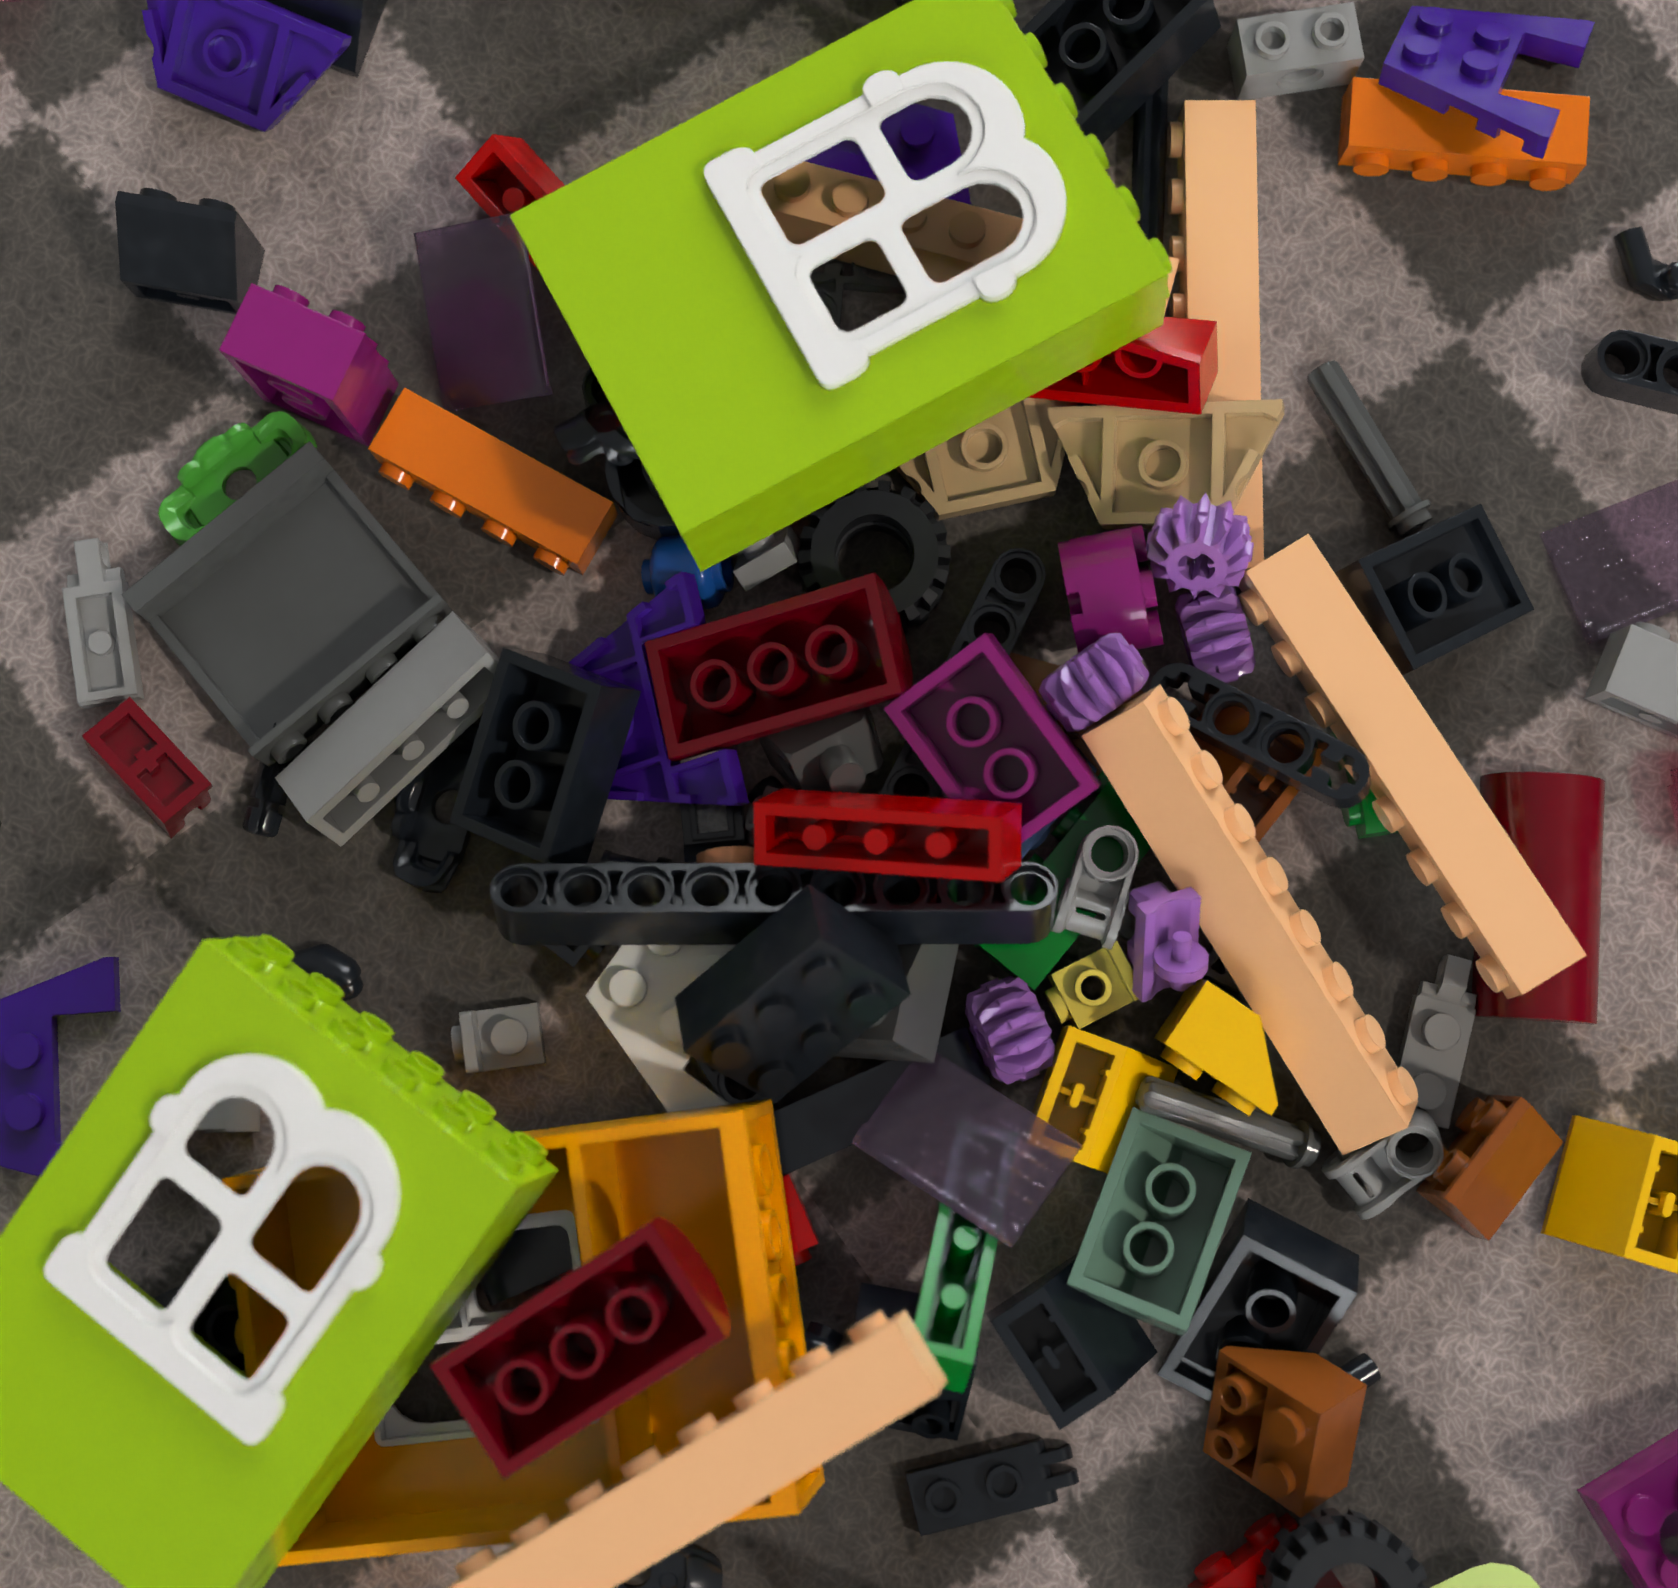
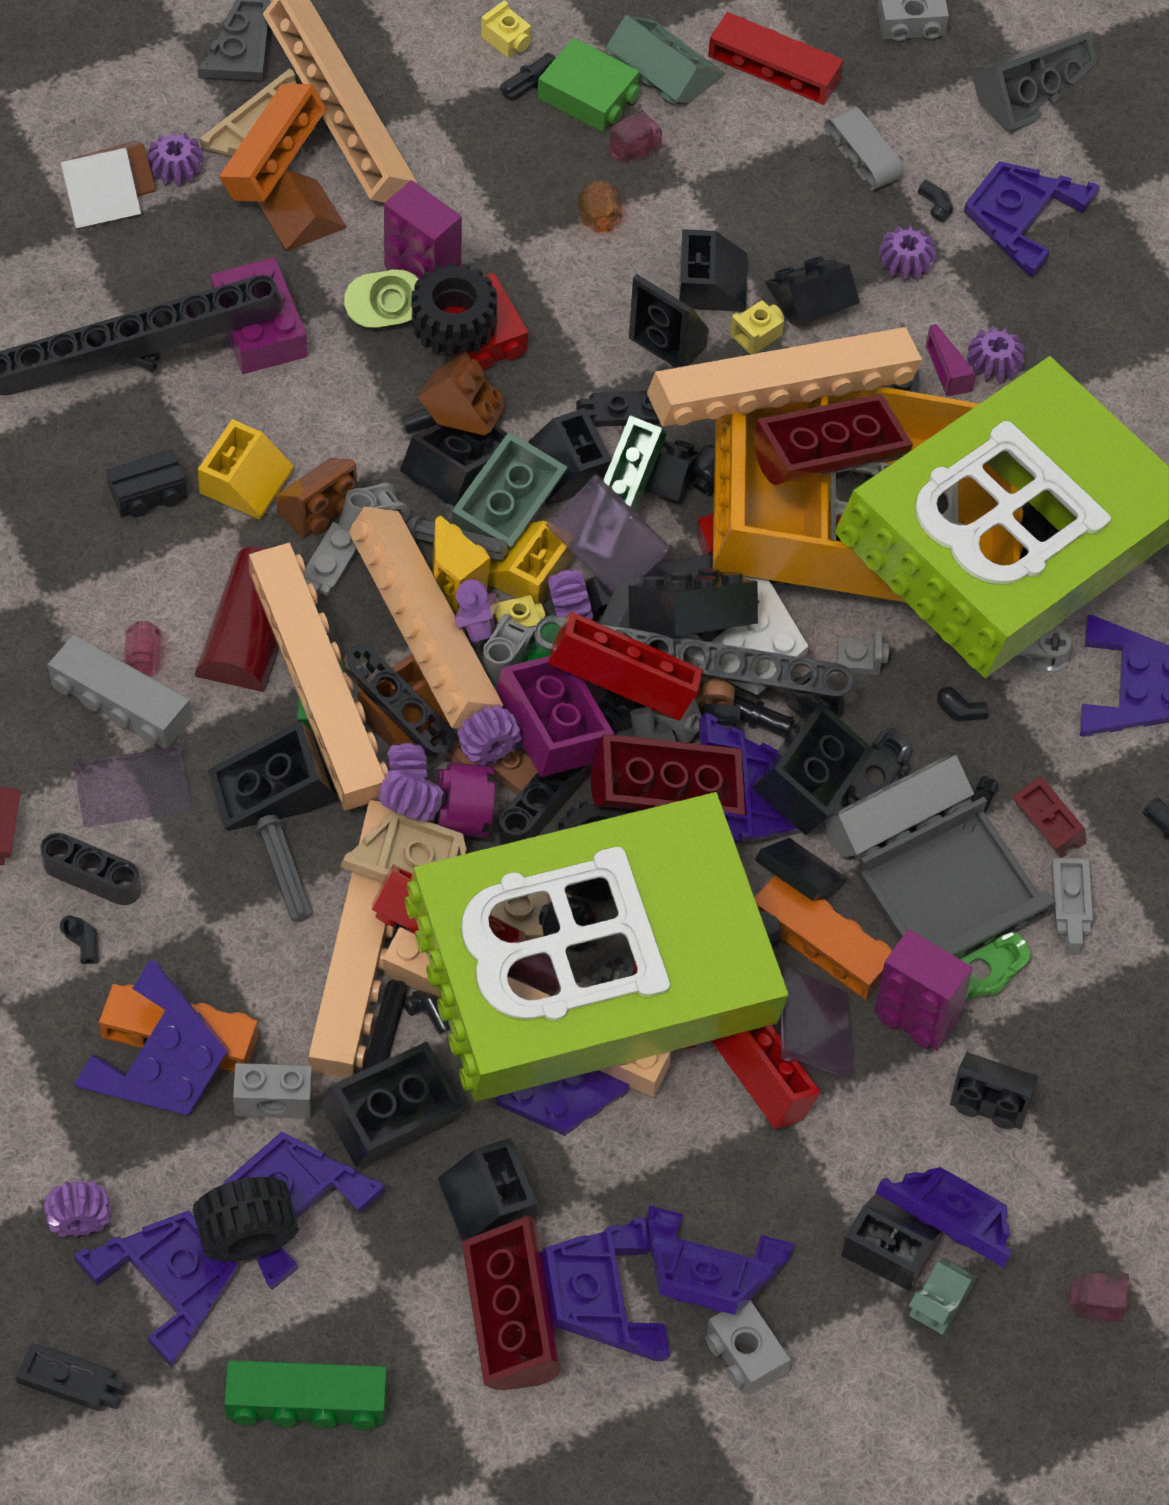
camera: 175 degrees left, 25 degrees down
(542, 583) = (800, 869): none -> black tile

